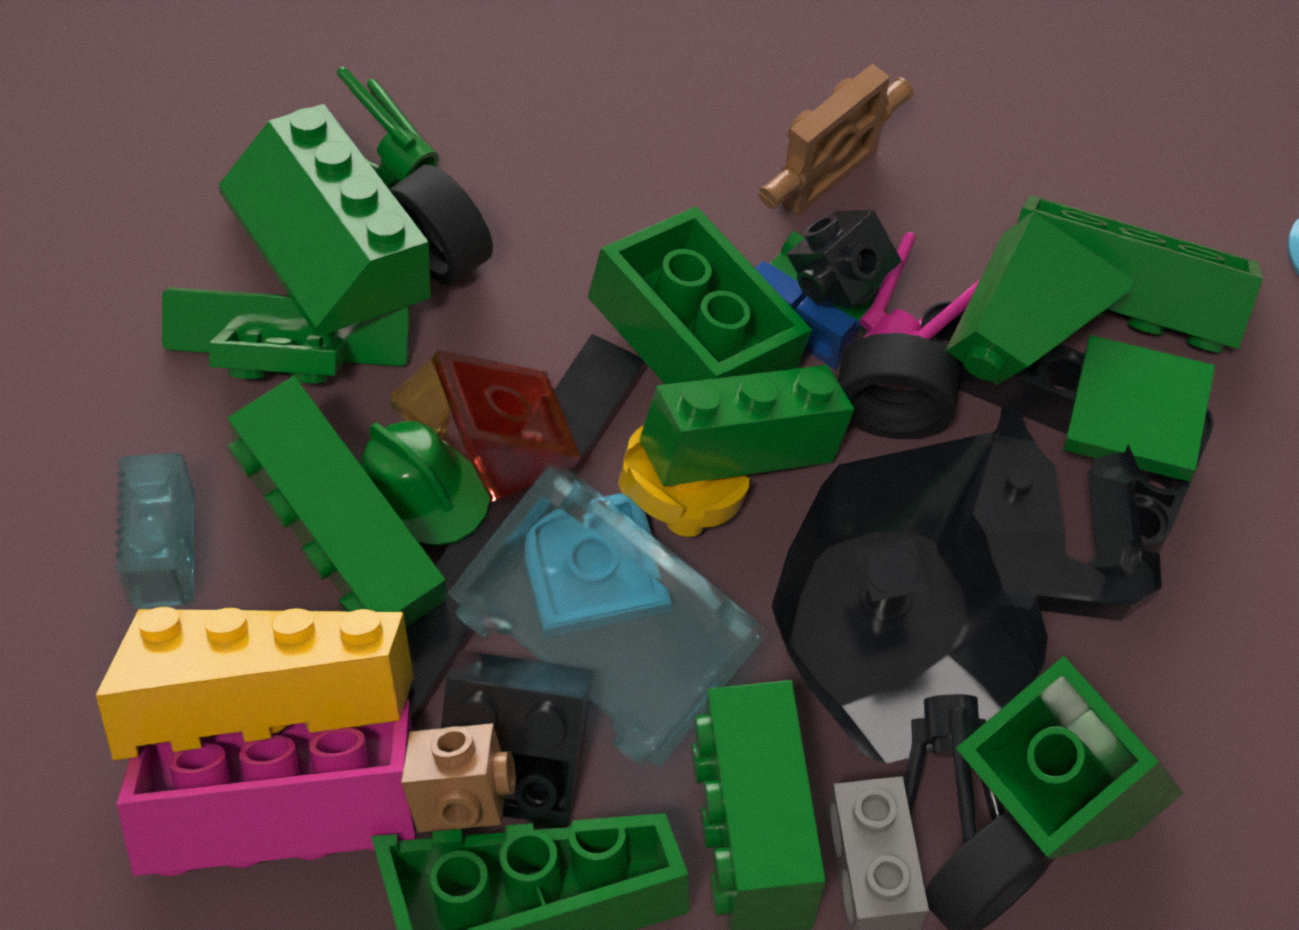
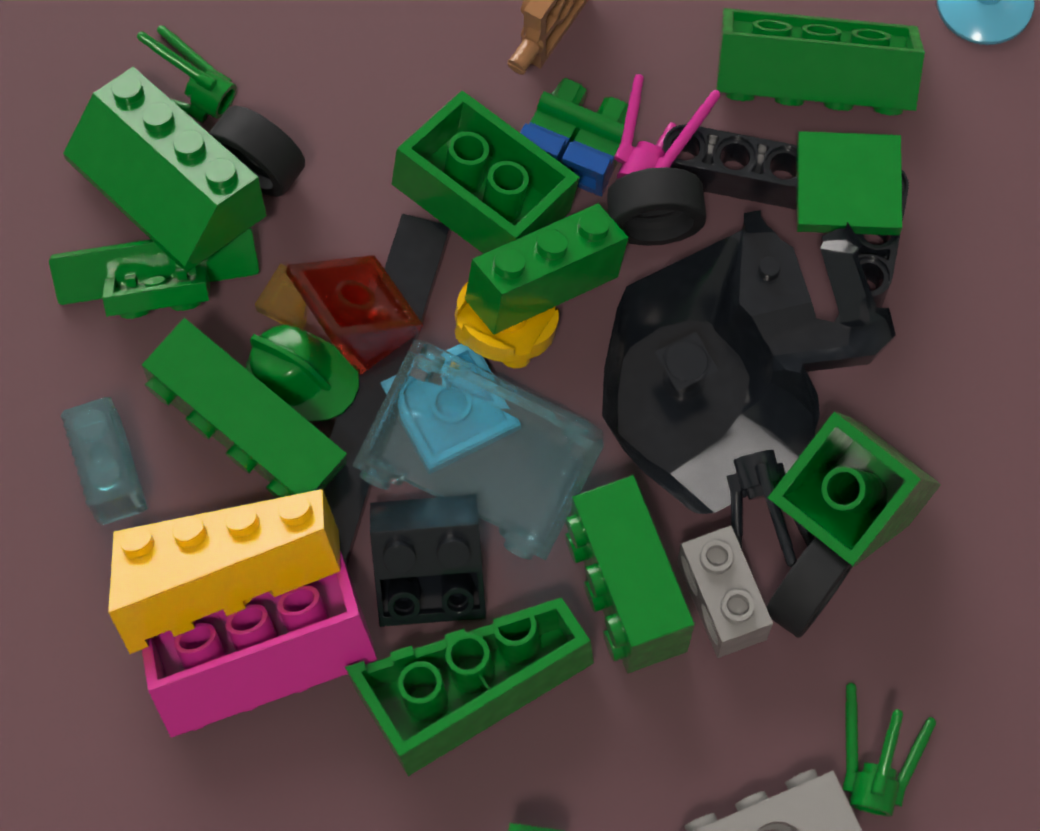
camera: 10 degrees left, 10 degrees up
(457, 777) = (399, 608): medium nougat brick -> none
(843, 258) = (591, 112): black brick -> none
(1032, 299) = (748, 115): green slope -> none

